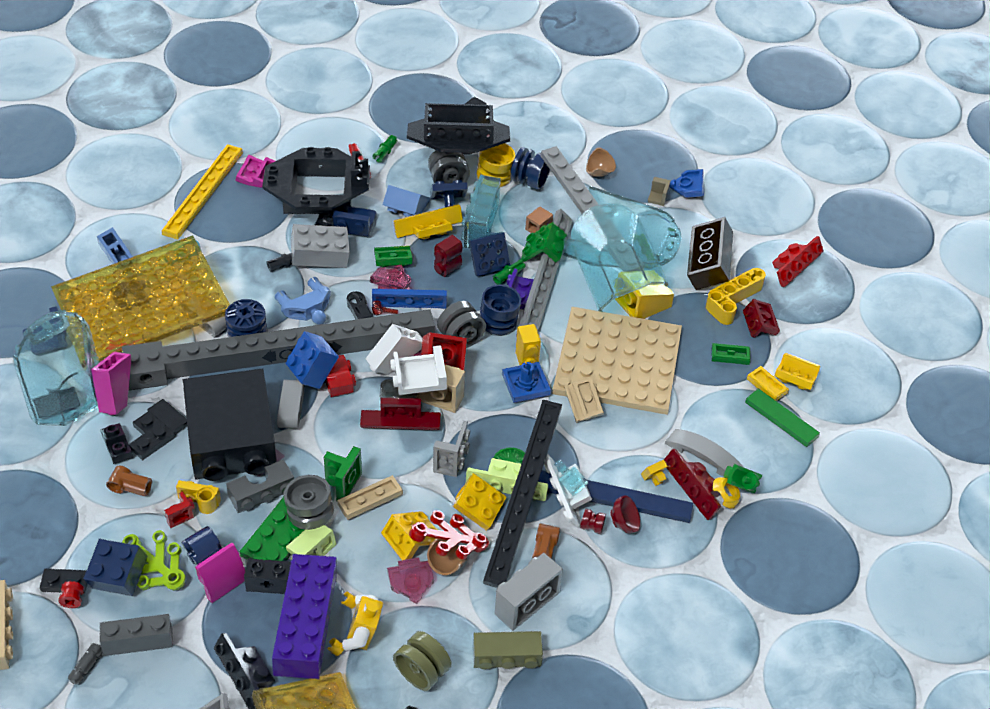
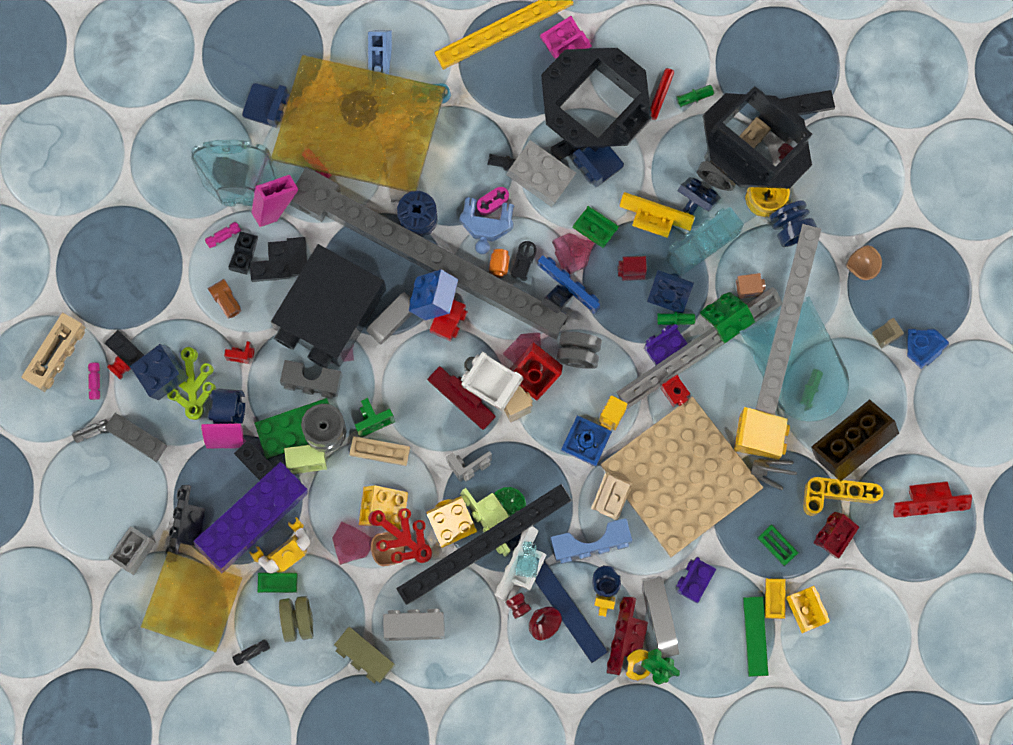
camera: 45 degrees right, 30 degrees up
(54, 623) = (94, 380): none -> dark pink axle
(85, 442) = (222, 235): none -> dark pink axle
(205, 496) = (260, 341): yellow plate -> none
(295, 287) = (490, 198): none -> dark pink beam
(340, 313) = (499, 263): none -> orange brick
(374, 656) = (277, 582): none -> green tile
(377, 309) = (537, 274): clear red hand -> none
(398, 340) = (507, 332): white slope -> none
(405, 201) = (658, 173): medium blue slope -> none
(411, 306) = (557, 298): none -> black plate
(500, 309) = (631, 349): dark blue wheel -> none
(546, 539) = (472, 591): dark orange piece -> none
(556, 310) = (675, 399): none -> red brick
(588, 454) = (567, 547): none -> medium blue arch
(614, 253) = (762, 384): clear light blue windscreen -> none
(640, 457) = (606, 581): none -> dark blue hair
(668, 314) = (761, 468): none -> dark grey plant
(701, 412) = (696, 580): none -> dark purple bracket

